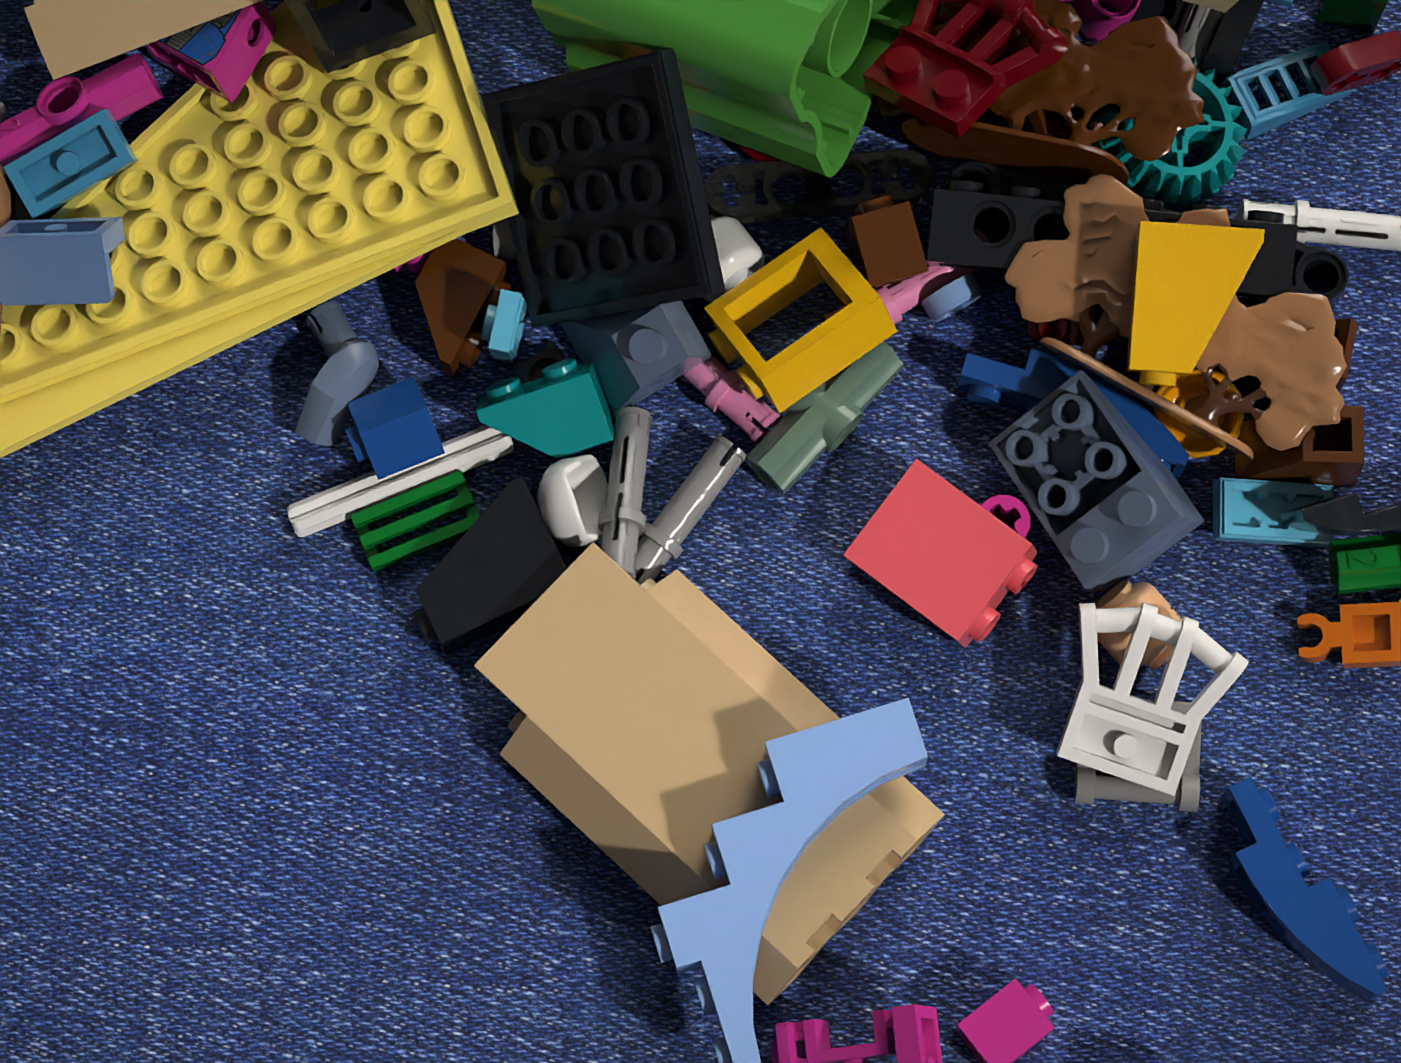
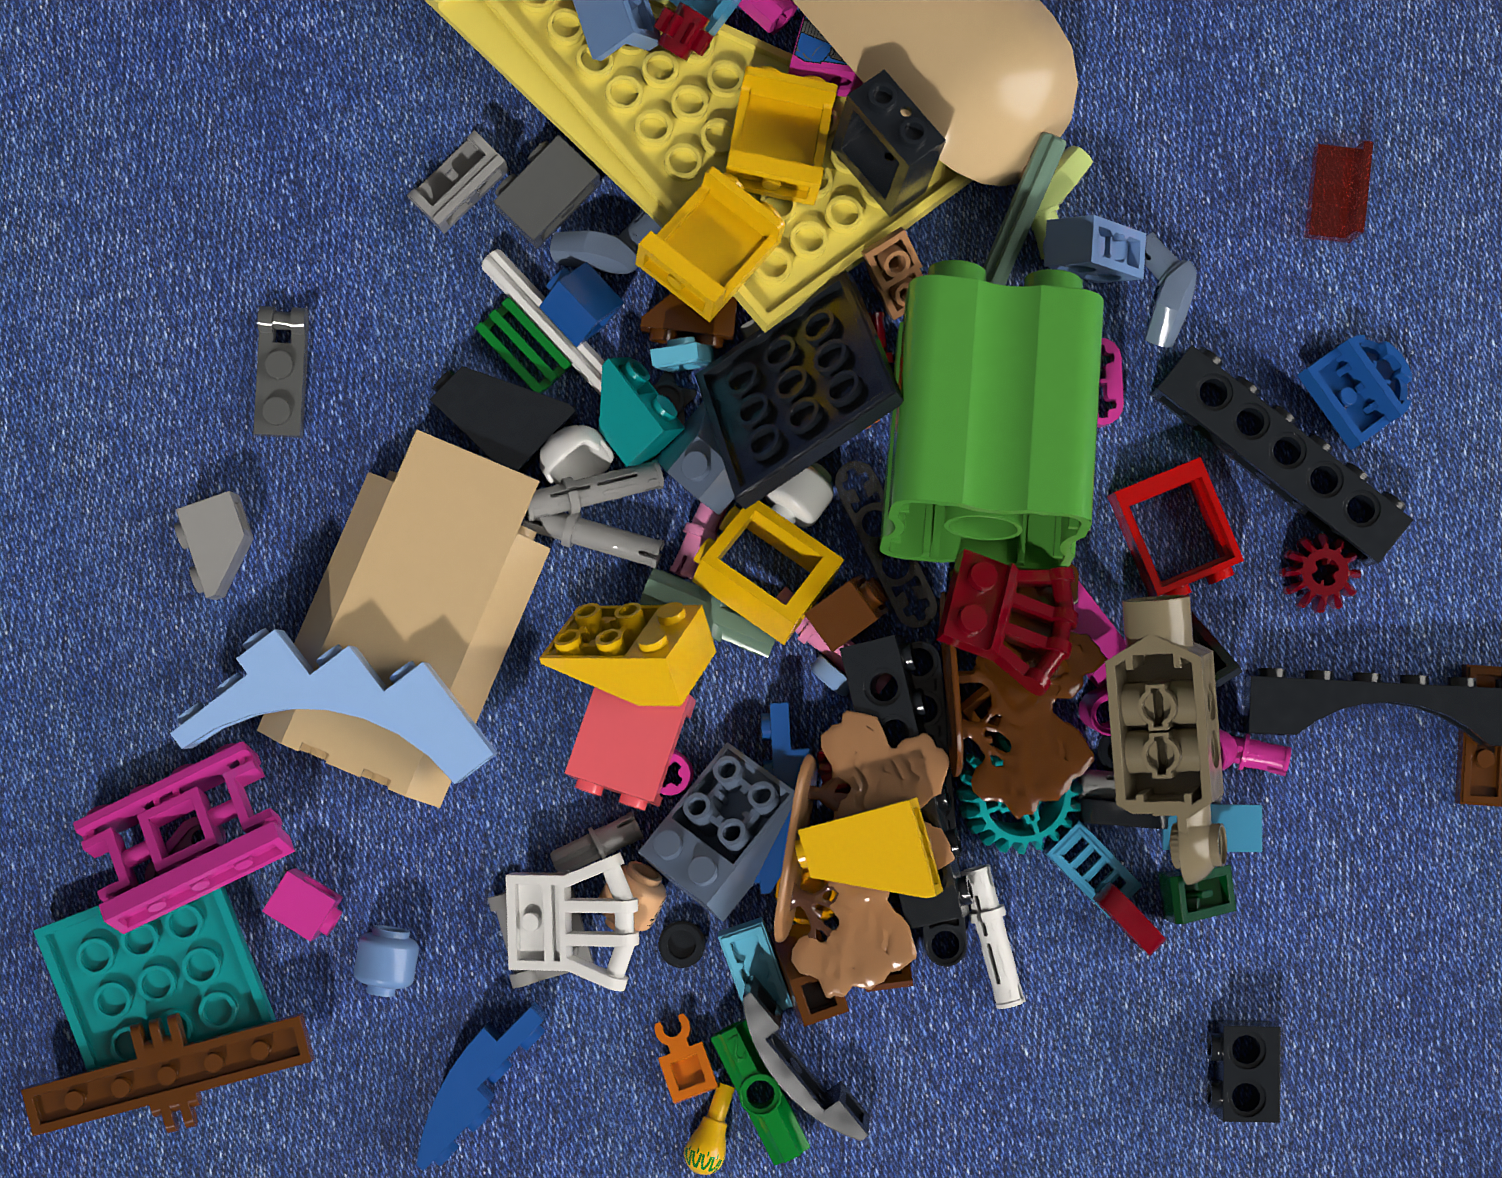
camera: 60 degrees right, 10 degrees up
(121, 184) = (683, 31): none -> dark red gear
(185, 524) = (459, 182): none -> light grey hinge
(242, 419) = (546, 190): none -> dark grey brick
(290, 119) = (781, 134): none -> yellow panel
(335, 825) = (281, 373): none -> dark grey plate
(391, 228) = (711, 243): none -> yellow panel
(502, 52) = (891, 268): none -> medium nougat slope
(509, 971) = (217, 540): none -> light grey slope
(839, 505) = (635, 650): none -> yellow slope
(1055, 645) = (597, 844): none -> light grey axle
(1109, 949) = (386, 960): none -> medium blue head
(1211, 592) = (681, 943): none -> black tile

